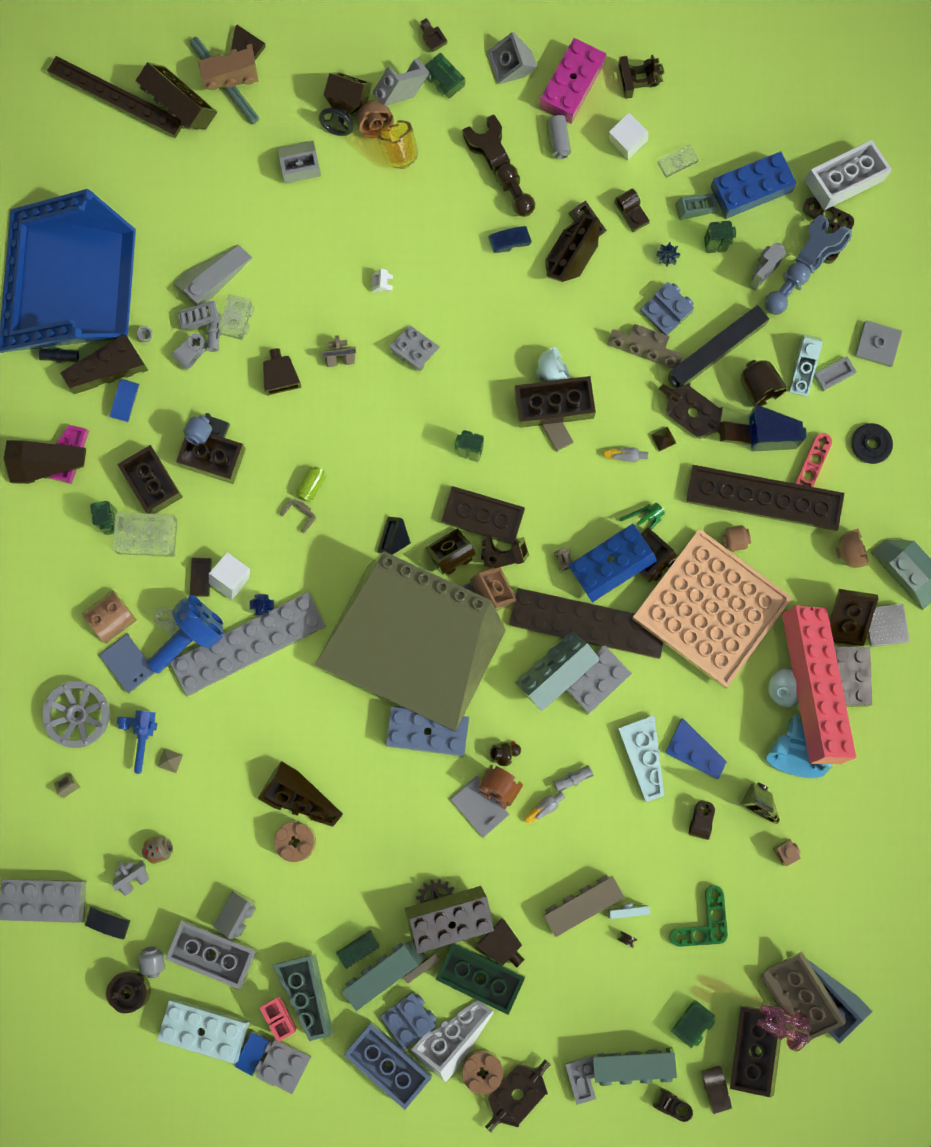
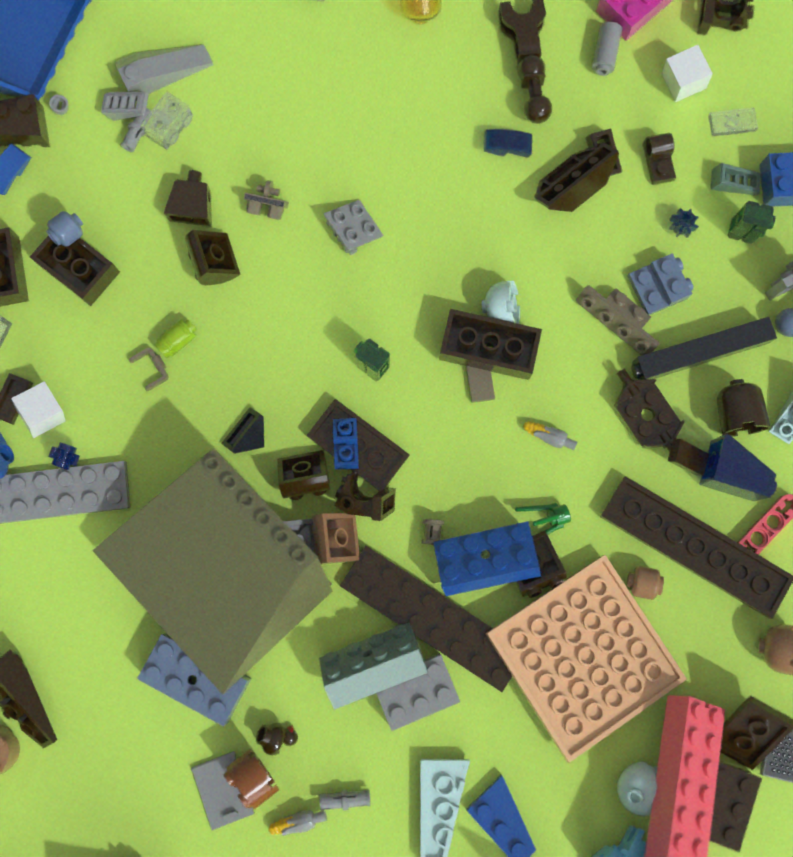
camera: 20 degrees right, 0 degrees up
(188, 352) = (100, 142): light grey piece -> none
(218, 426) = (95, 234): pearl dark grey bracket -> none
(314, 411) = (212, 257): none -> dark brown brick
(379, 281) = (342, 138): white tile -> none
(474, 516) = (345, 443): none -> blue slope
(663, 439) = (601, 433): dark brown slope -> none

